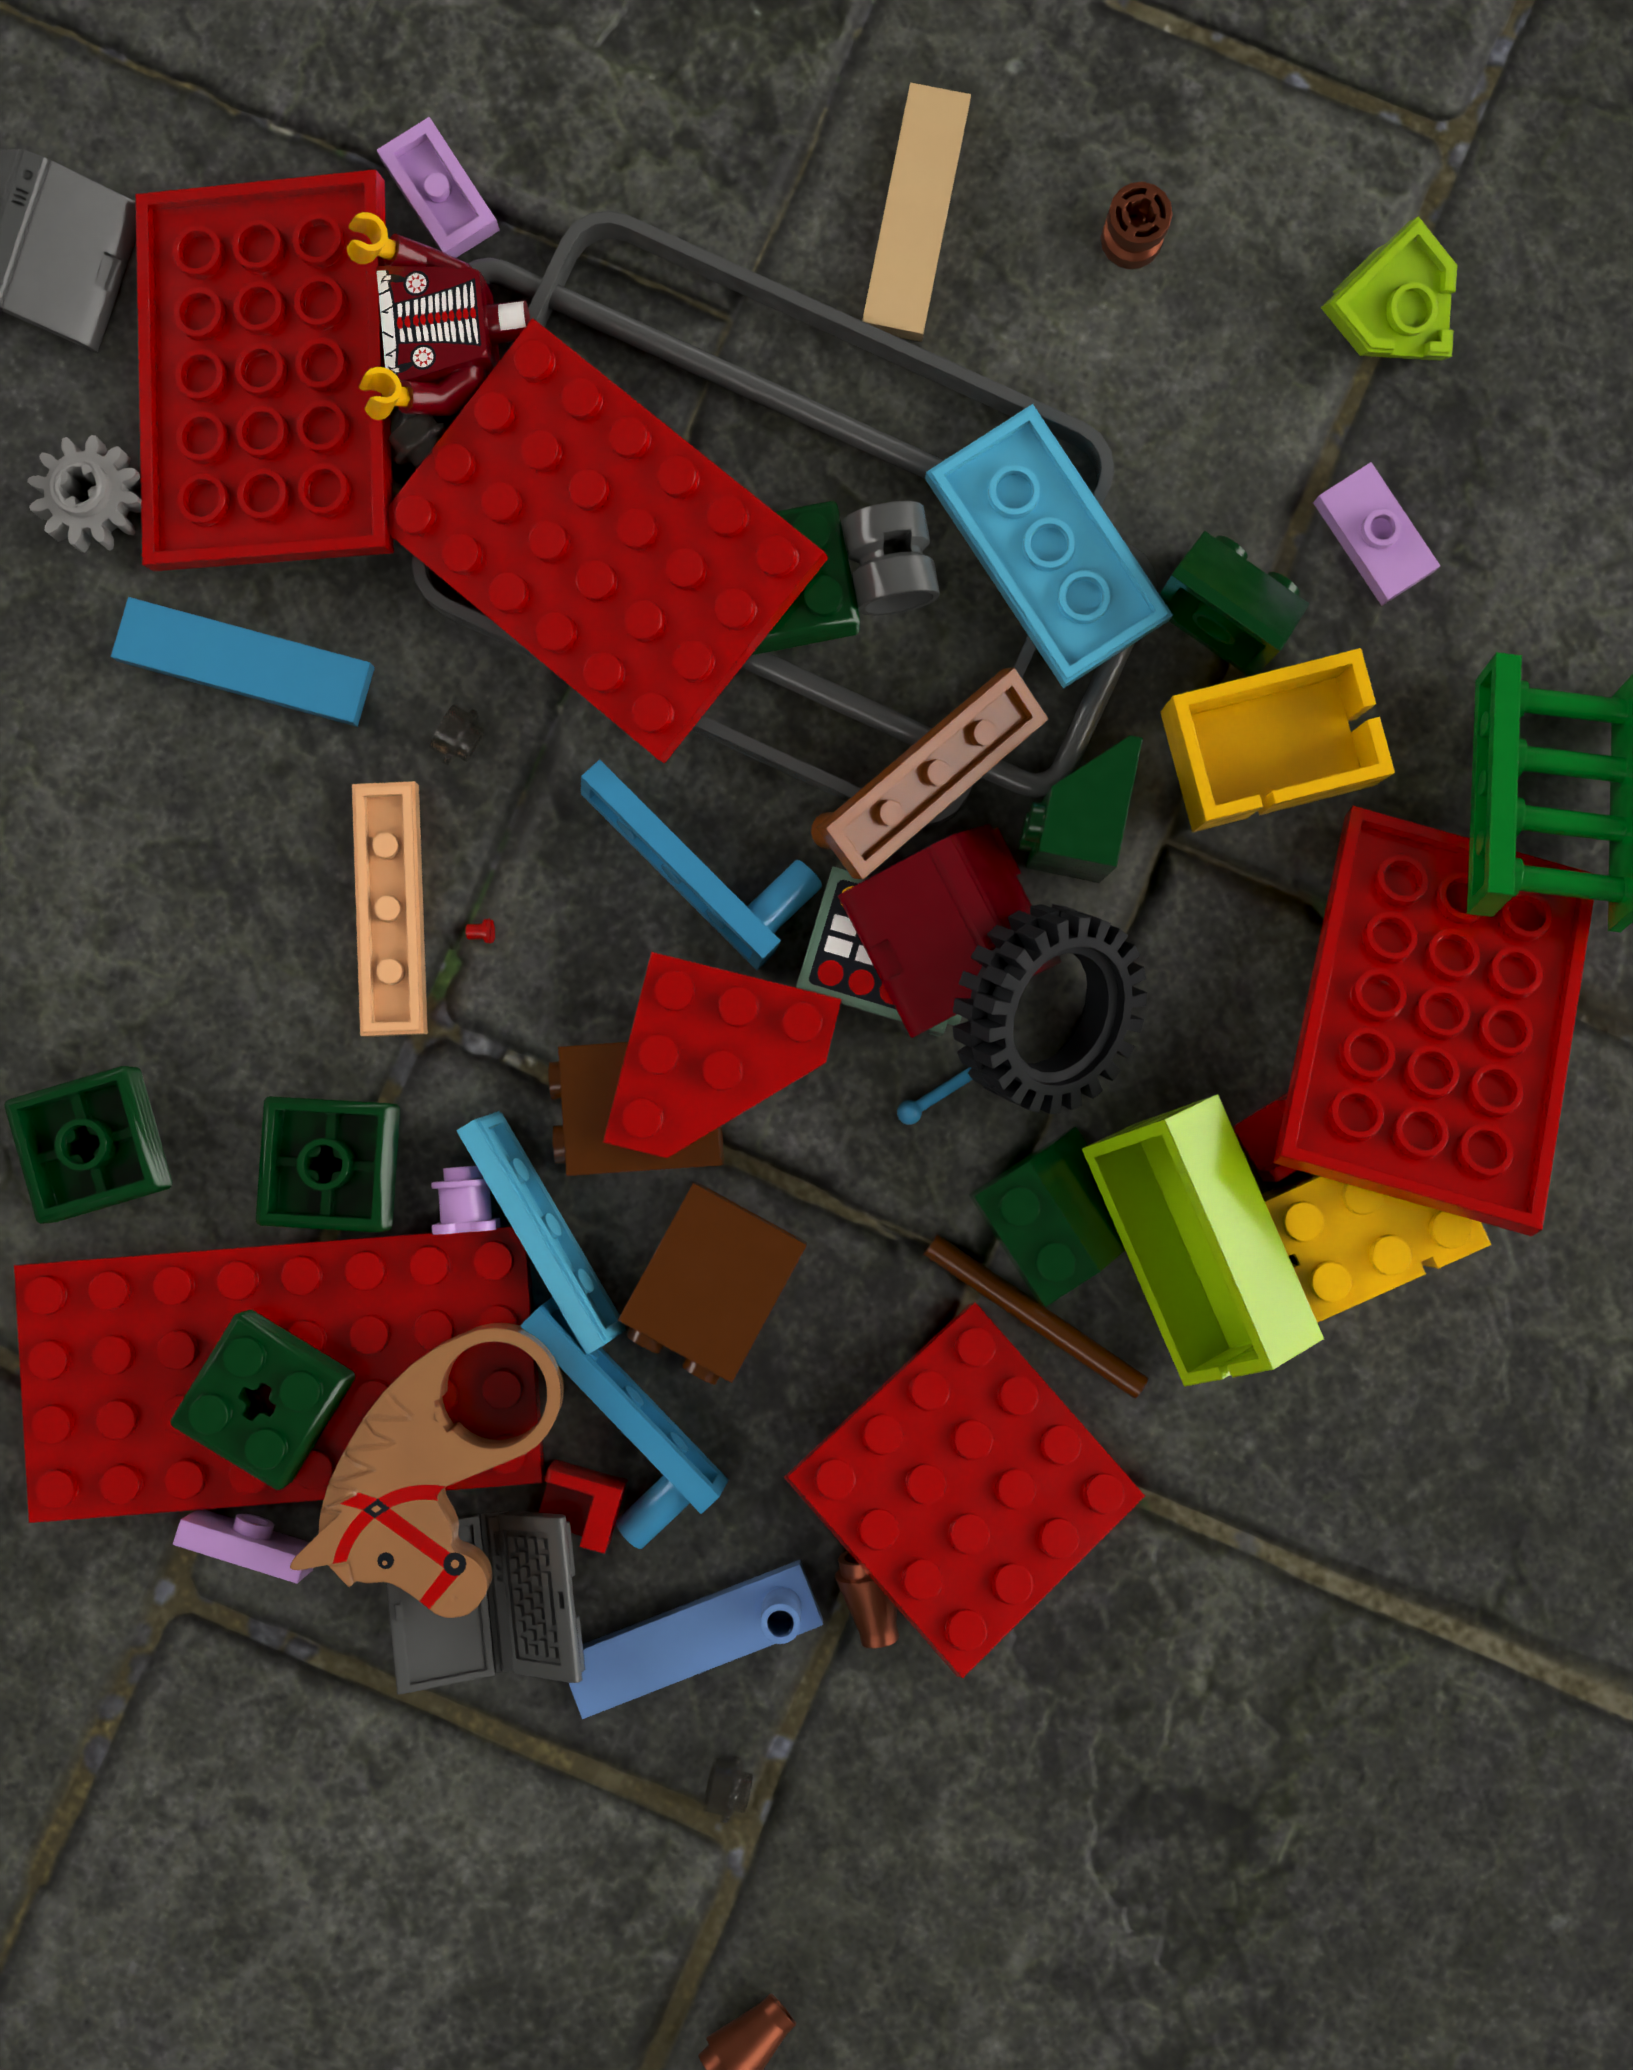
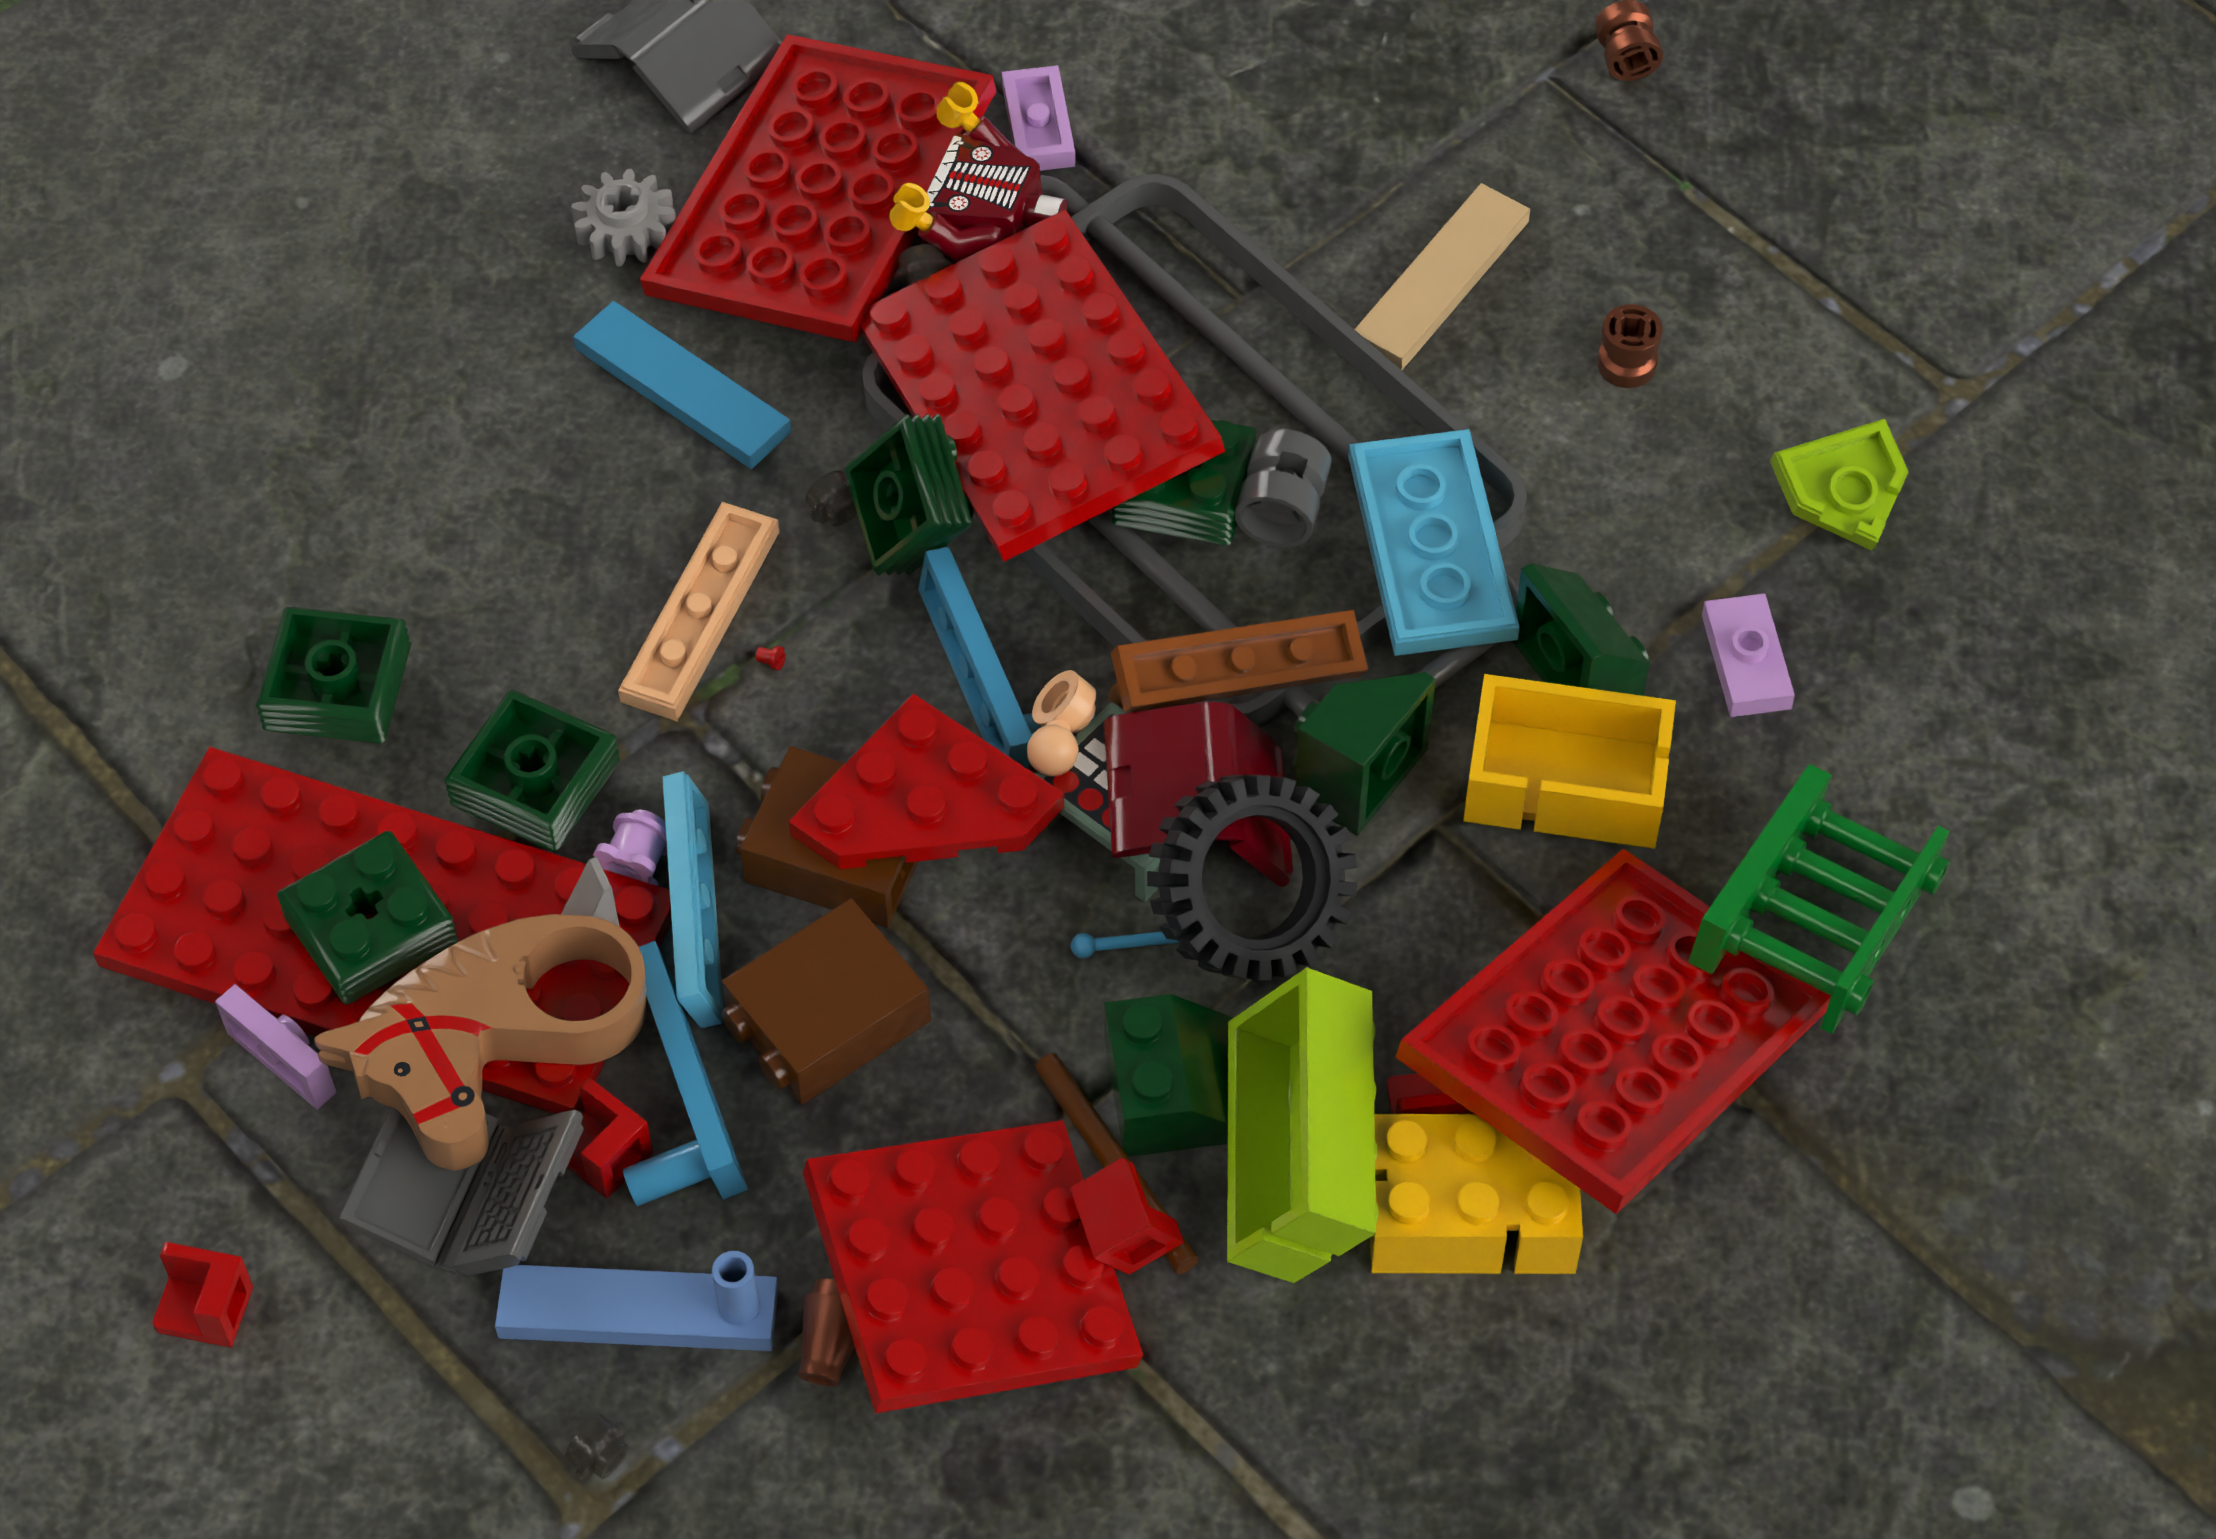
camera: 25 degrees right, 30 degrees down
(316, 1804) = (202, 1295): none -> red panel
(463, 1299) = (592, 895): none -> light grey piece
(538, 722) = (908, 494): none -> dark green brick
(795, 899) = (1061, 710): none -> light nougat plate
(1075, 1393) = (1120, 1222): none -> red panel

